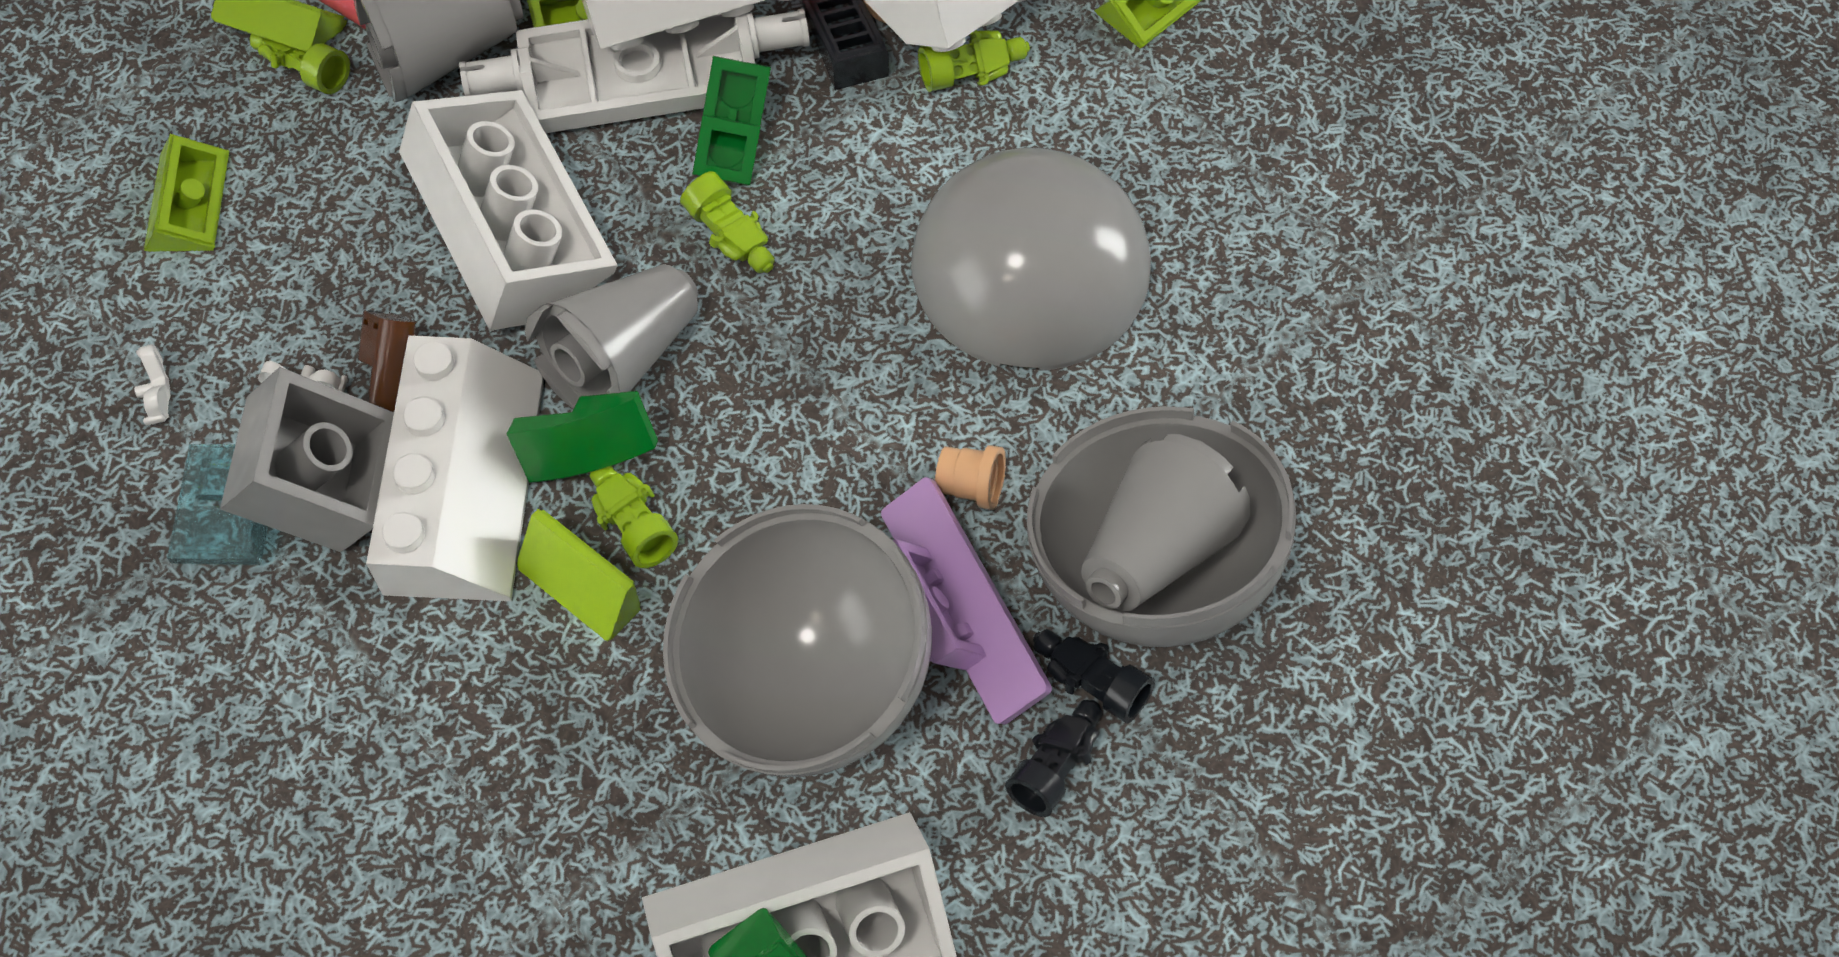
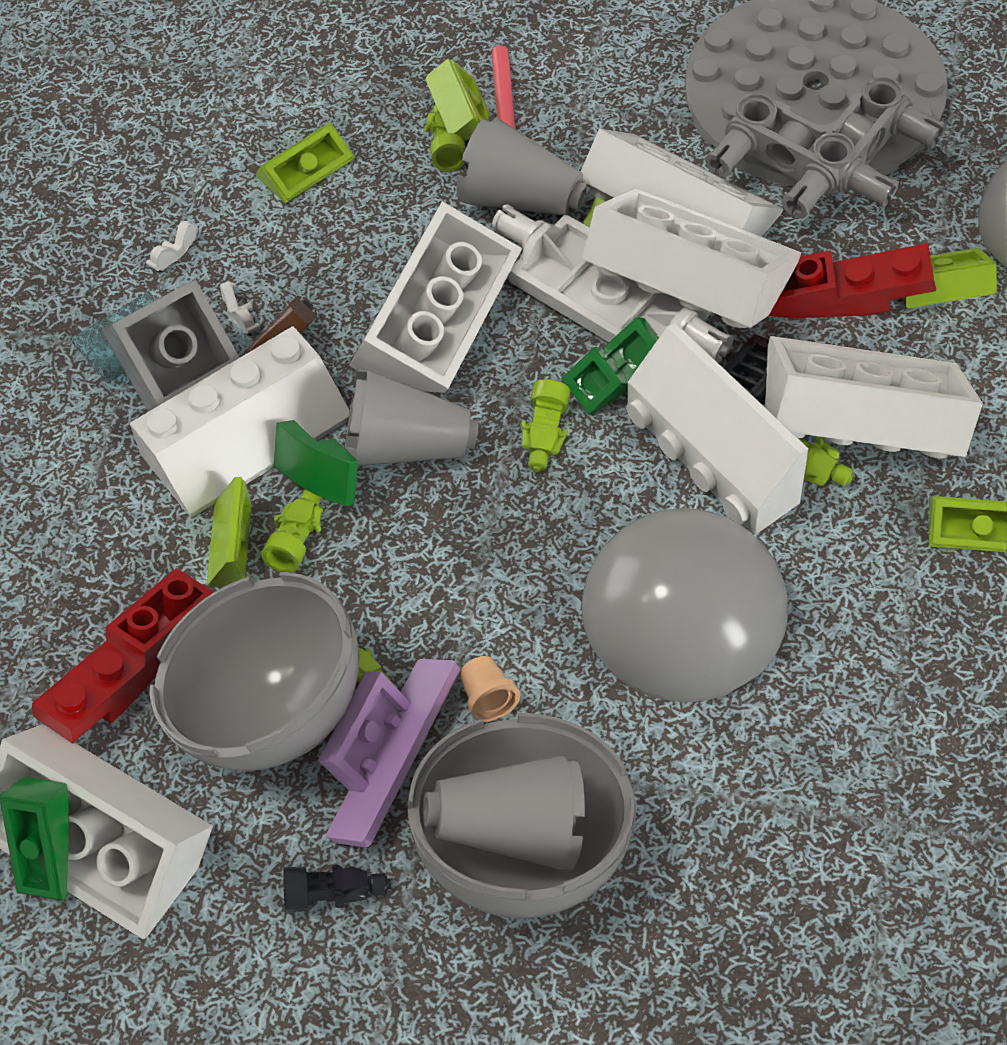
camera: 55 degrees right, 5 degrees down
(633, 767) = (123, 664): none -> red slope
(889, 91) = (717, 431): none -> white slope
(1085, 665) = (409, 890): black piece -> none

